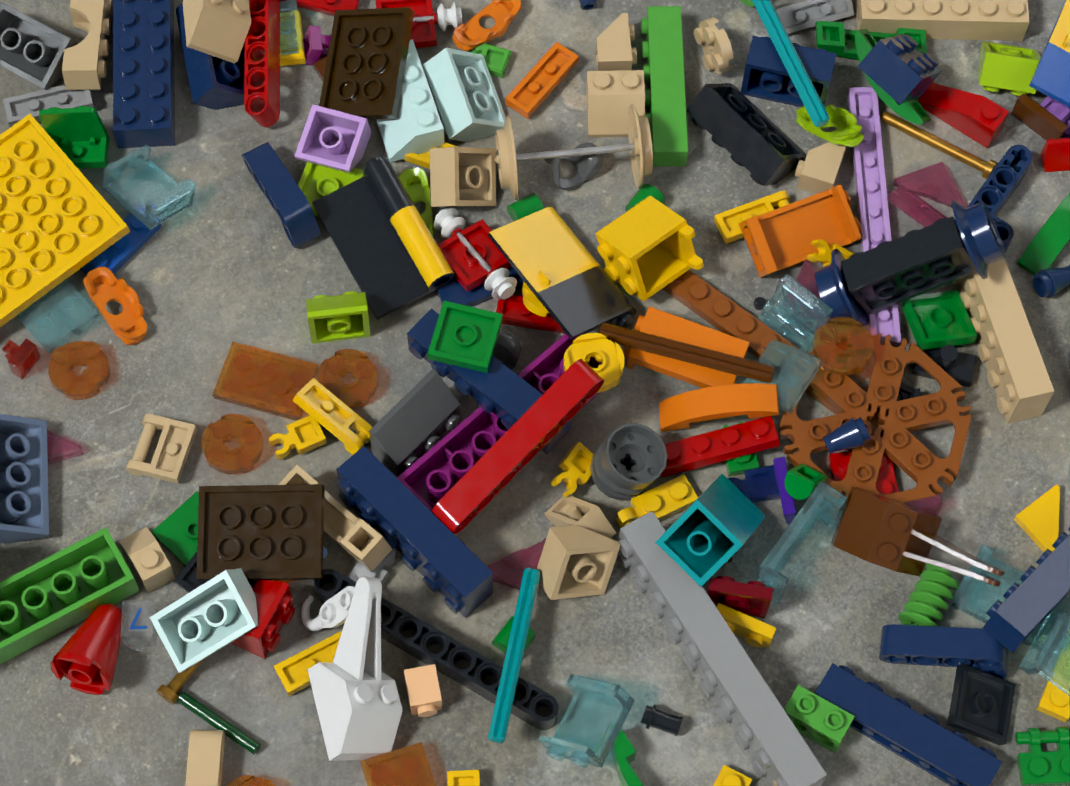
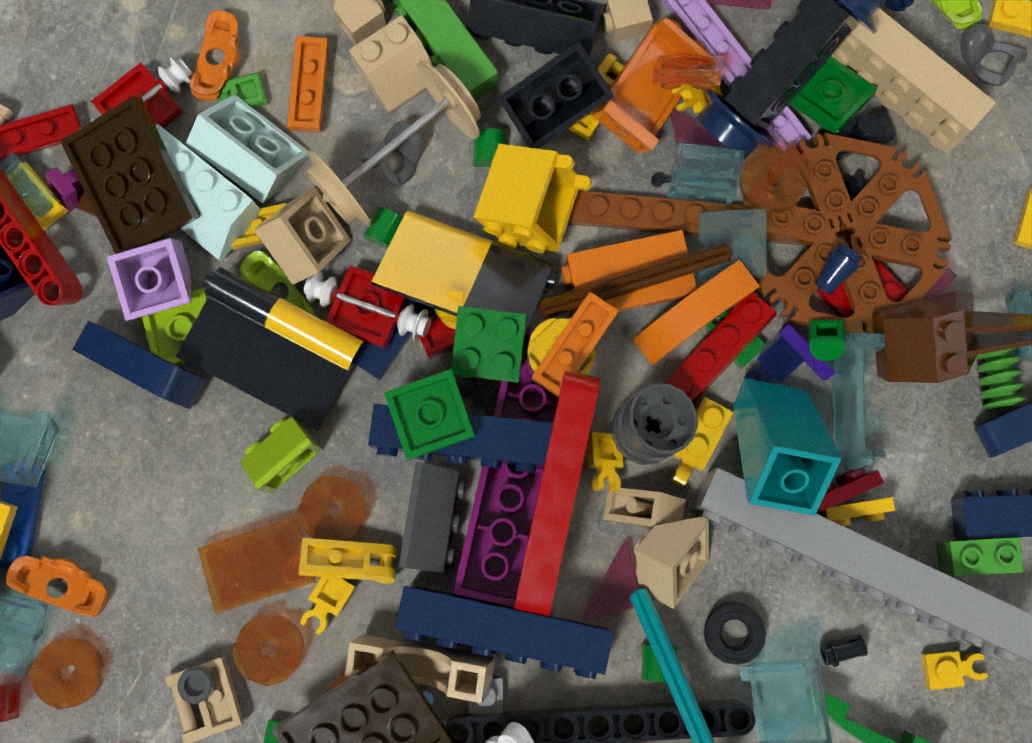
camera: 30 degrees left, 15 degrees up
(165, 430) = (196, 684): none -> dark grey tile
(544, 325) = (489, 344): none -> green plate
(586, 636) = (755, 627): none -> black tyre
(612, 354) = (575, 342): none -> orange plate
(719, 190) = (556, 96): none -> black slope
(837, 235) = (696, 70): none -> clear orange plate

